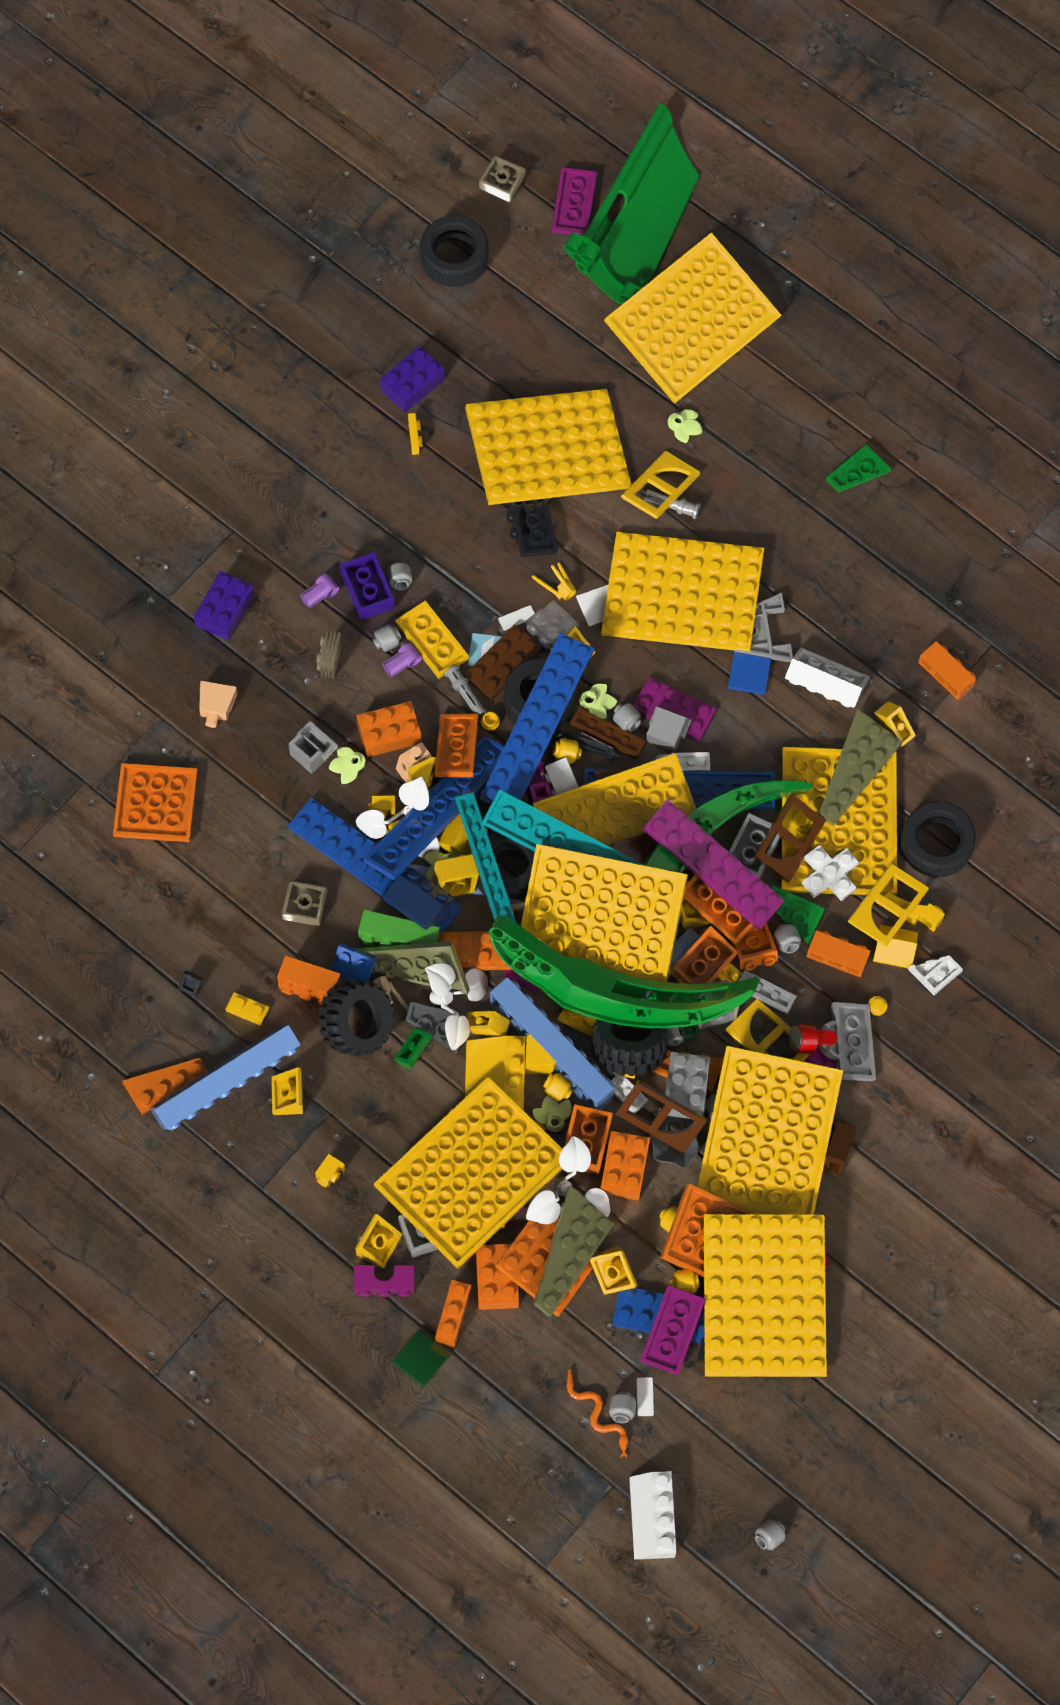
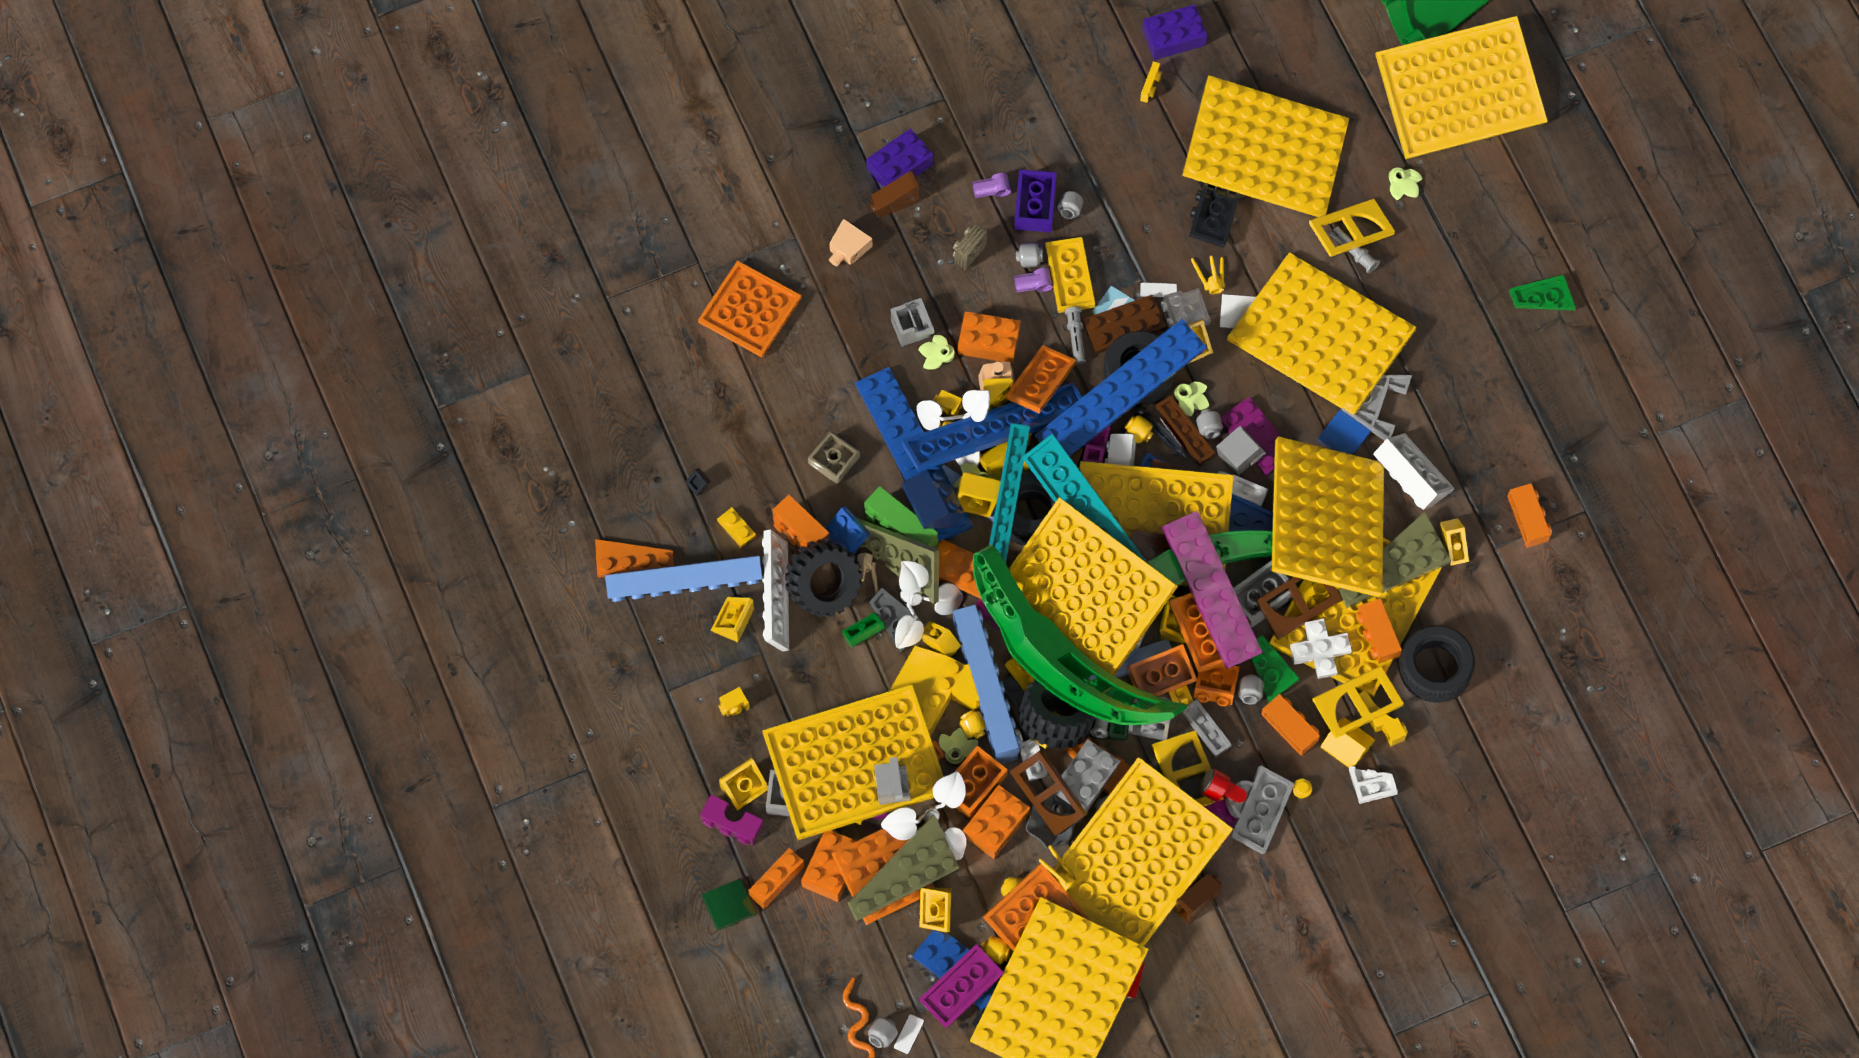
camera: 30 degrees right, 0 degrees up
(237, 638) = (895, 196): none -> reddish brown slope
(316, 1049) = (775, 593): none -> white plate
(490, 721) = (1084, 371): yellow plate -> none
(518, 1175) = (891, 782): none -> light grey plate
(714, 1188) = (1065, 880): none -> yellow plant
(778, 752) = (1328, 517): none -> yellow plate
(873, 833) = (1378, 631): none -> orange brick

